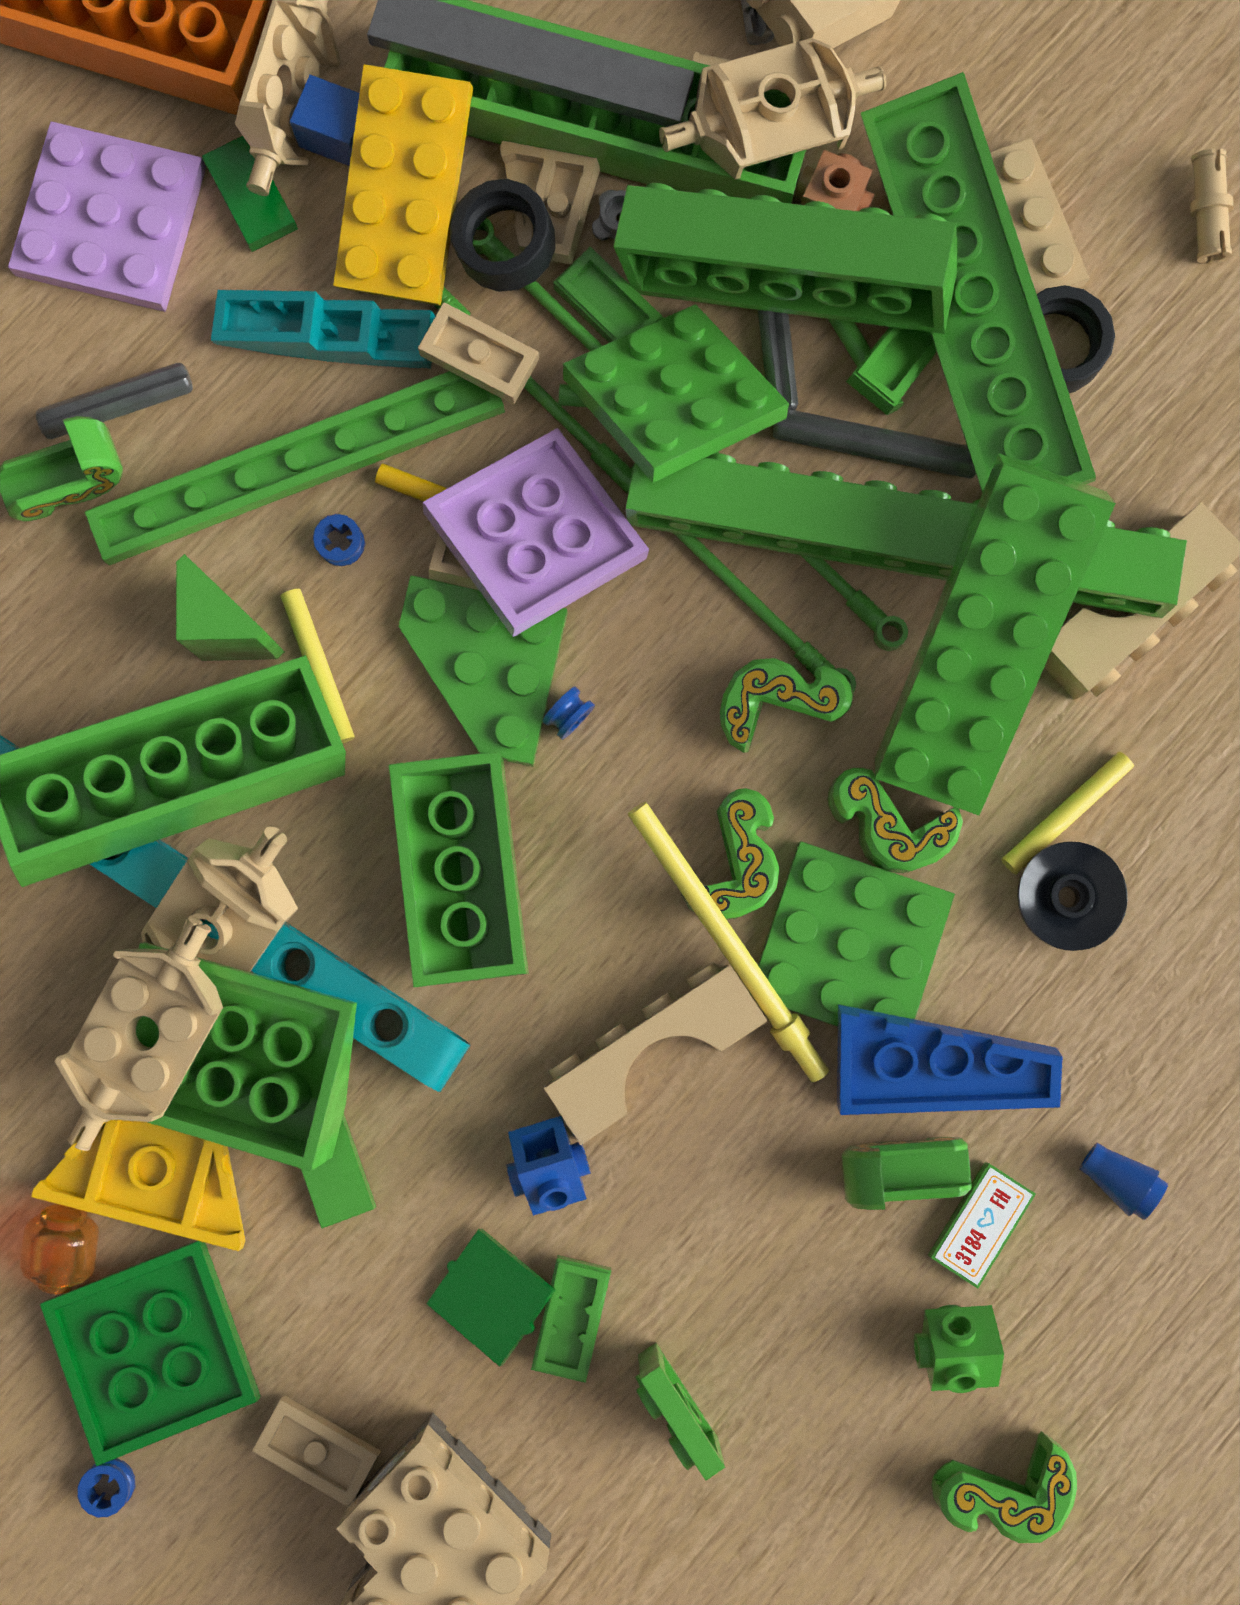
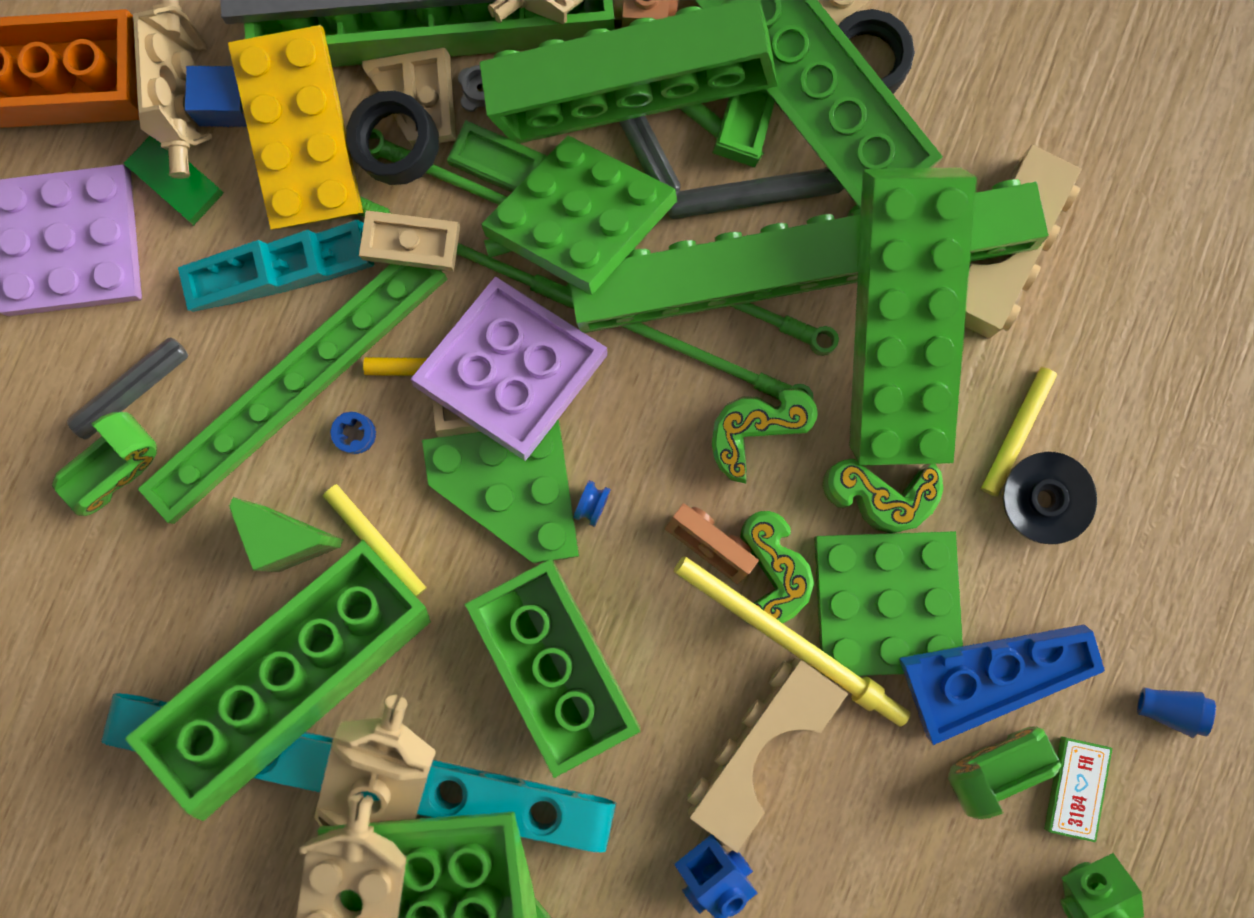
camera: 15 degrees left, 0 degrees up
(672, 789) = (723, 552): none -> nougat plate

